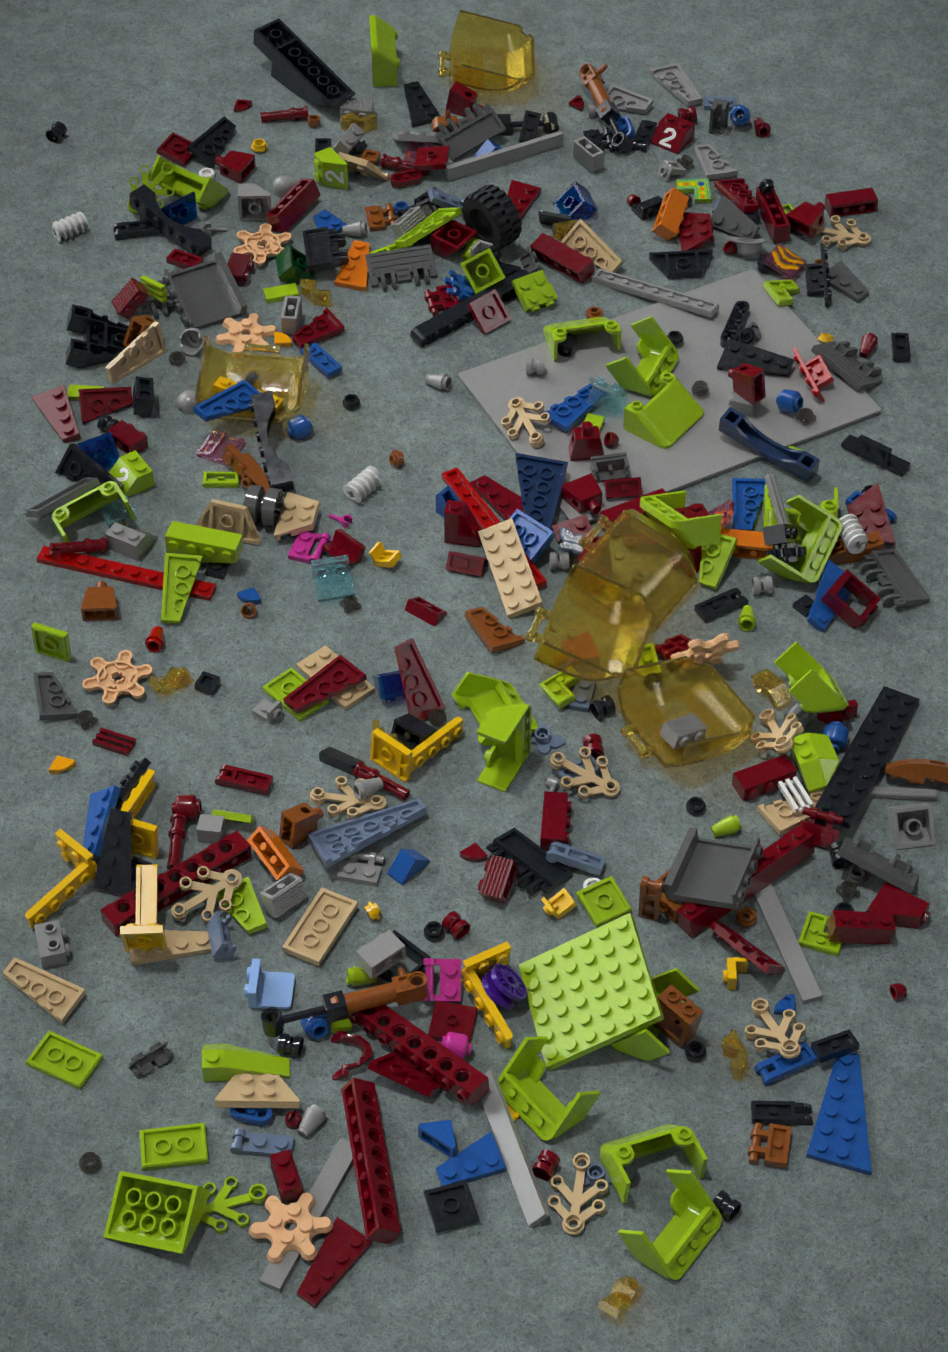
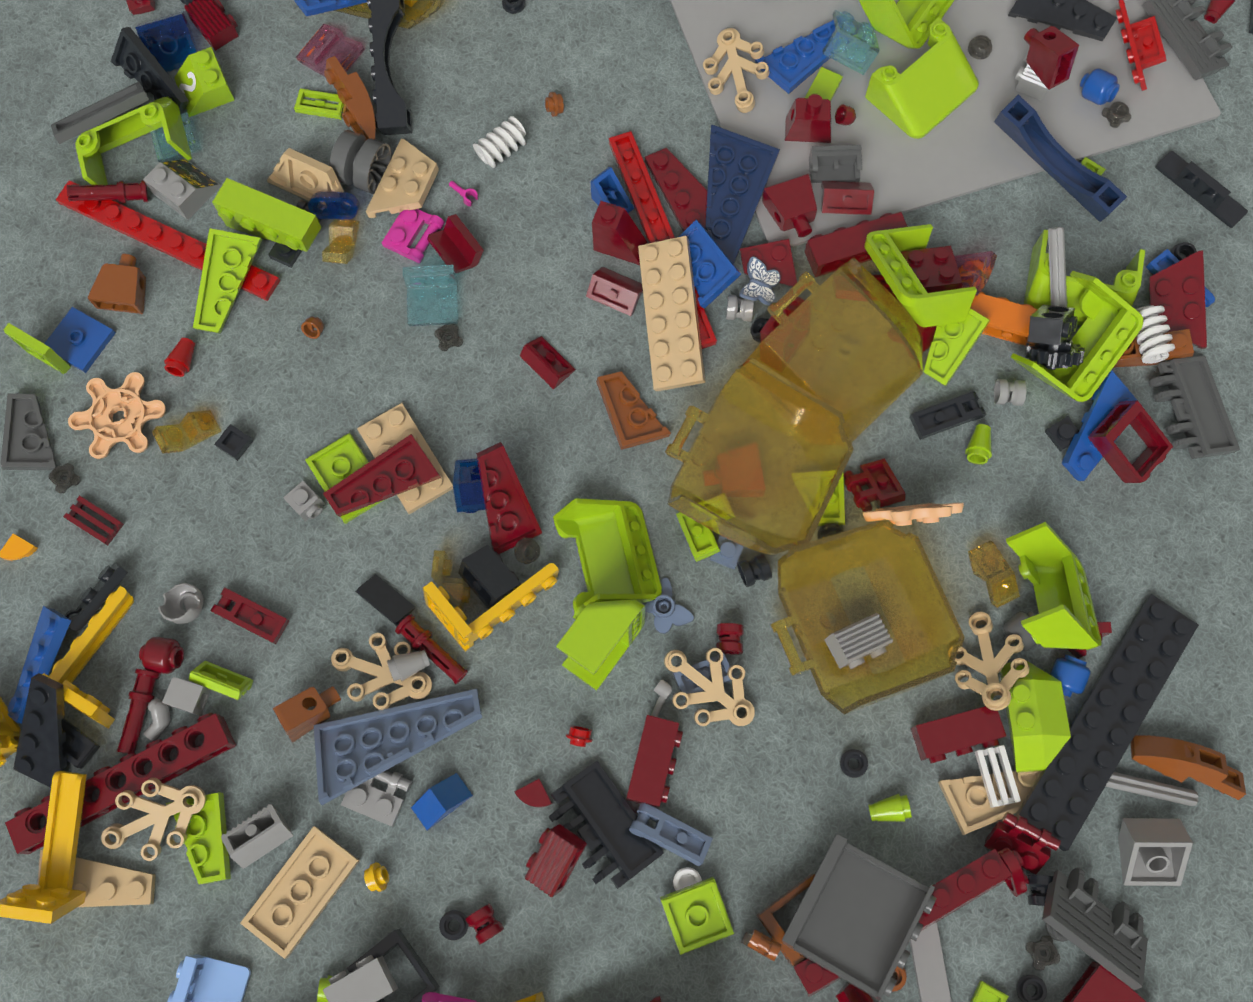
camera: 10 degrees right, 25 degrees up
(81, 637) = (79, 339): none -> blue plate
(194, 777) = (173, 603): none -> light grey hair
(194, 845) = (160, 717): none -> light grey arm
(219, 937) = (161, 891): sand blue hinge -> none
(249, 595) = (319, 302): blue tile -> none
(250, 532) = (335, 206): none -> clear blue plate
(257, 556) = (341, 241): none -> clear yellow slope
(274, 853) = (260, 763): orange brick -> none
(299, 427) = (437, 35): blue head -> none
(384, 557) = (507, 266): yellow bracket -> none
(498, 815) = (579, 736): none -> red plate
(559, 904) = (632, 911): yellow bracket -> none
(747, 496) = (1011, 241): blue wing -> none
(821, 850) = (1018, 880): none -> dark red plate

